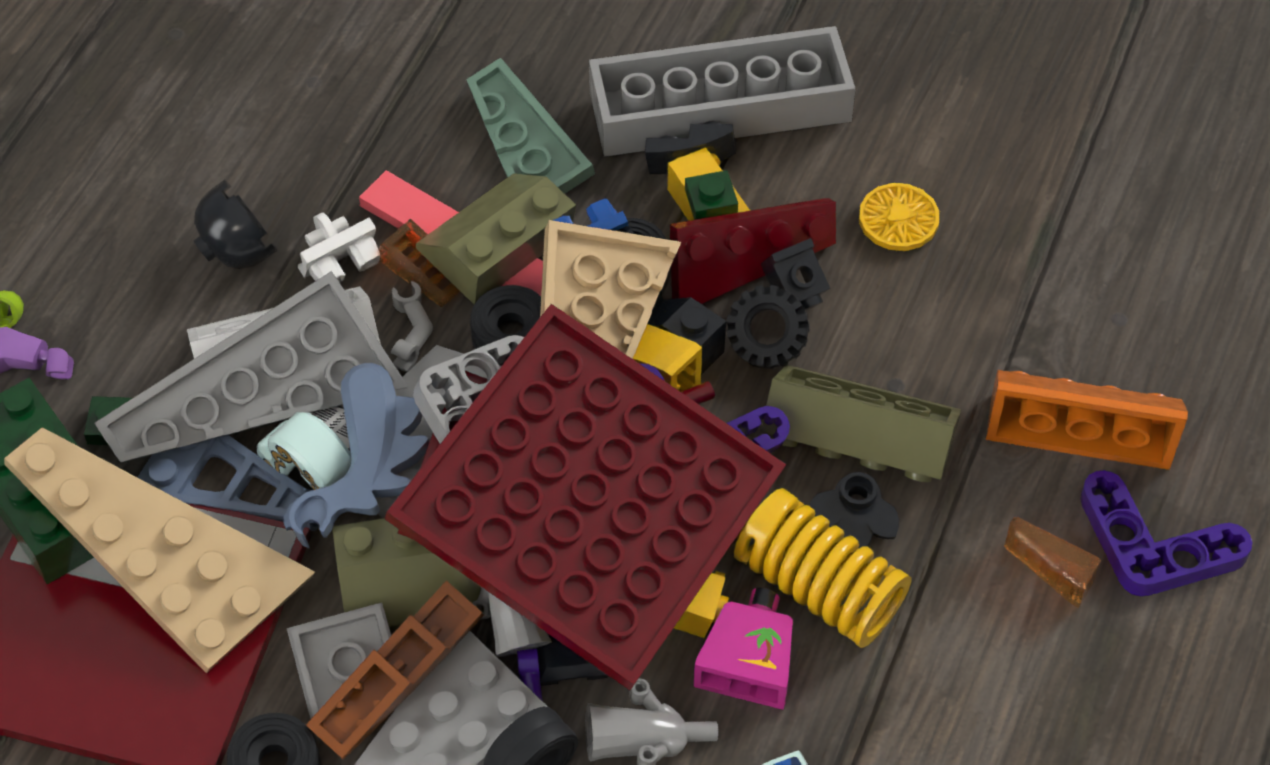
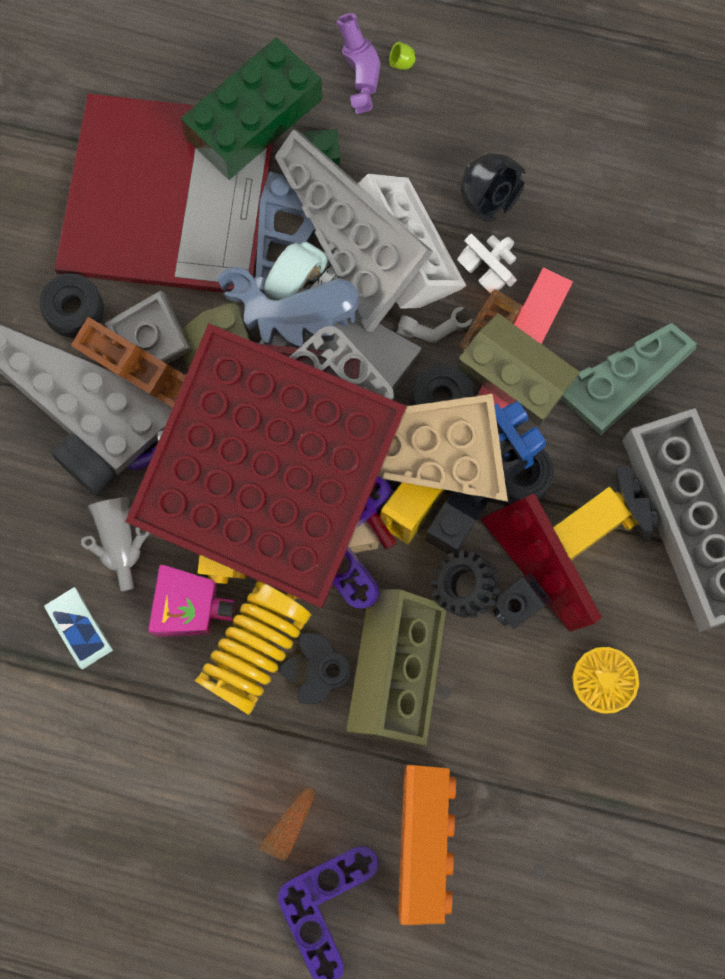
camera: 80 degrees right, 20 degrees up
(177, 562) = (195, 204): tan wing -> none
(711, 195) = (577, 523): dark green plate -> none

